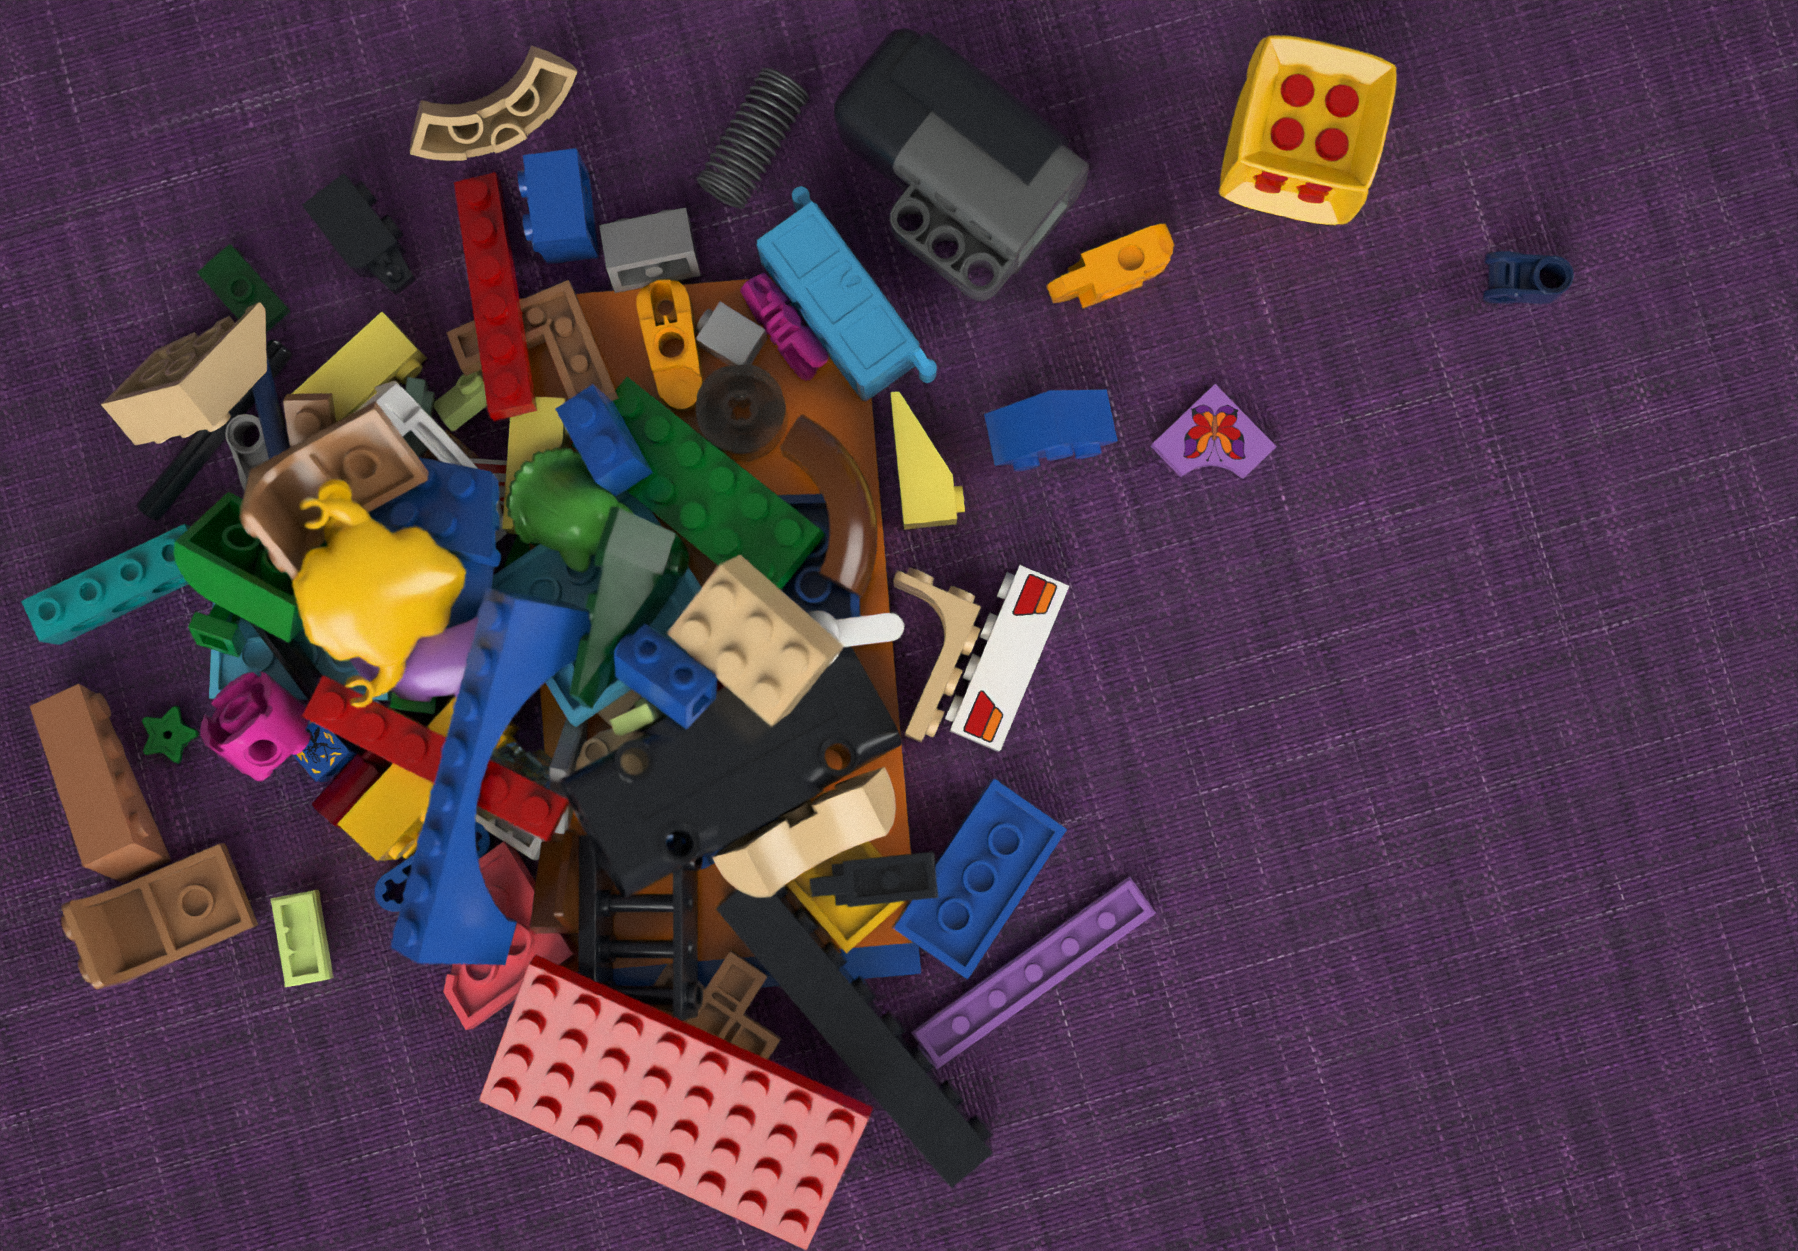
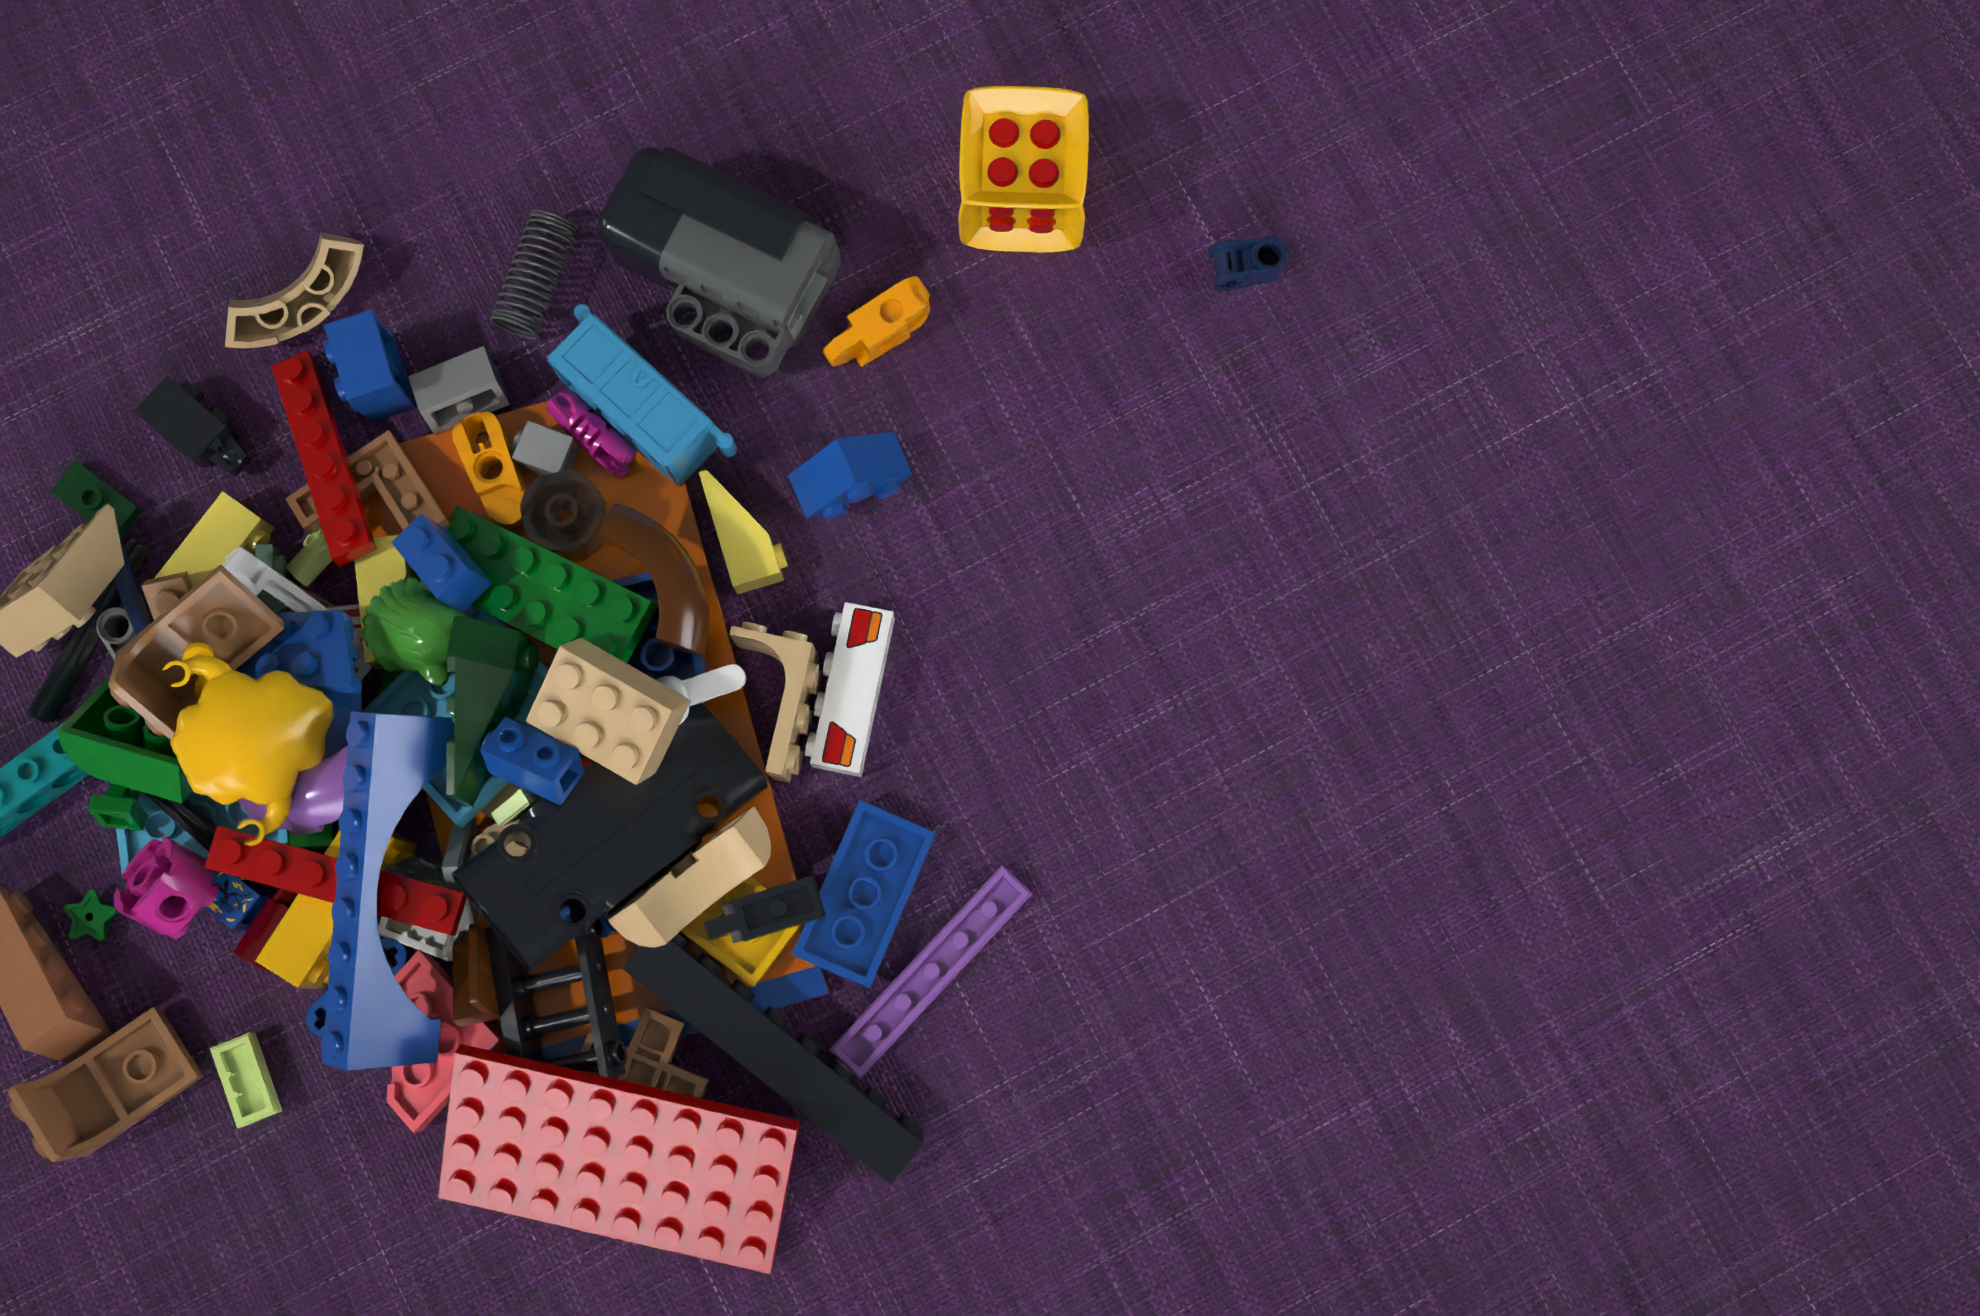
camera: 15 degrees left, 5 degrees down
(1213, 435) = (998, 455): medium lavender tile -> none

